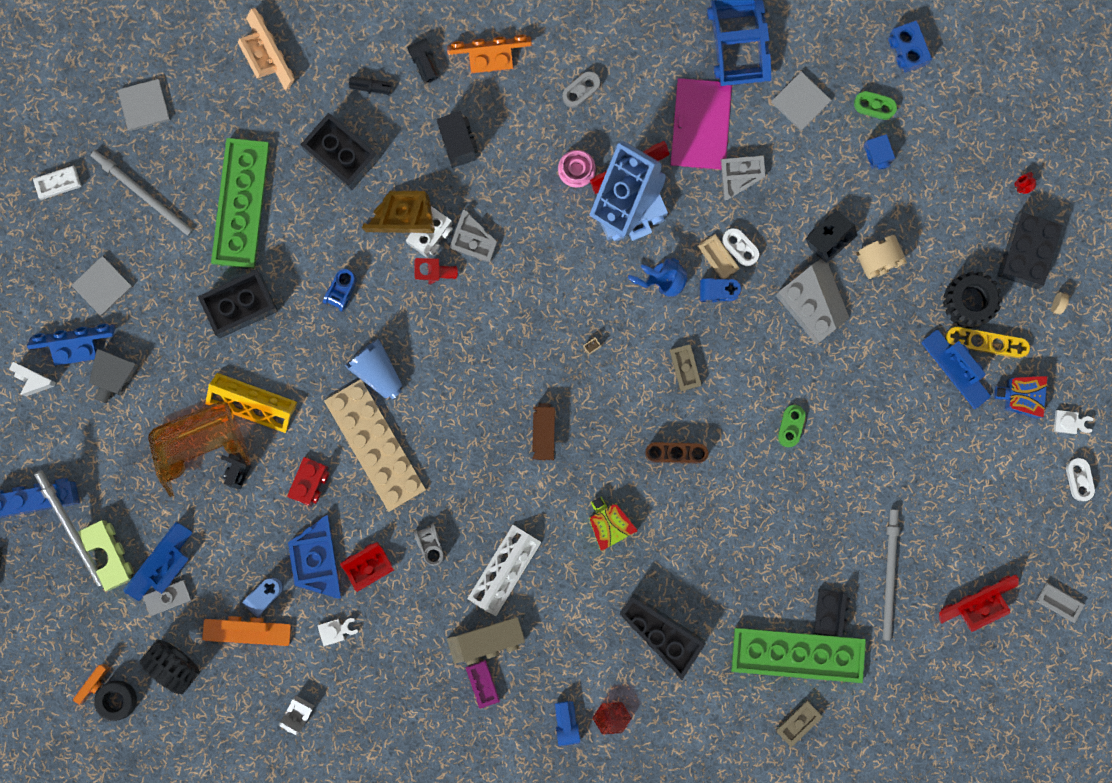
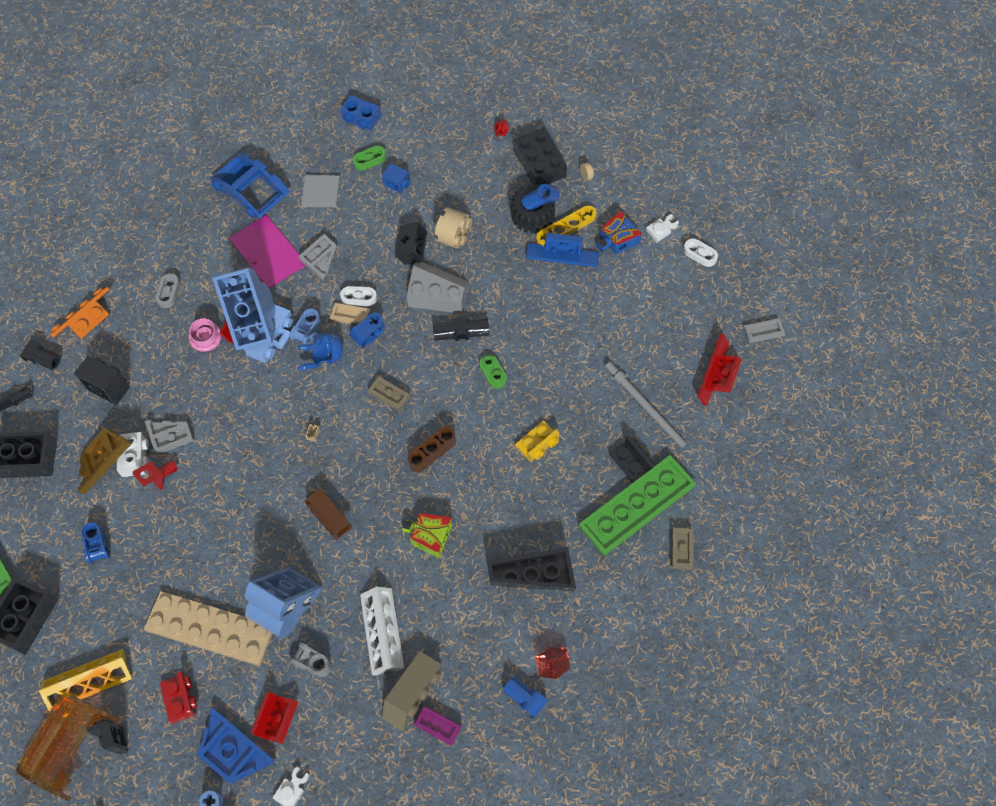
camera: 40 degrees left, 20 degrees down
(376, 370) = (165, 573): medium blue cone -> none
(447, 478) = (279, 600): none -> medium blue brick
(668, 239) = (304, 329): none -> medium blue piece
(770, 524) = (537, 441): none -> yellow bracket
(800, 362) = (461, 329): none -> black piece
(984, 301) = (539, 197): none -> blue piece

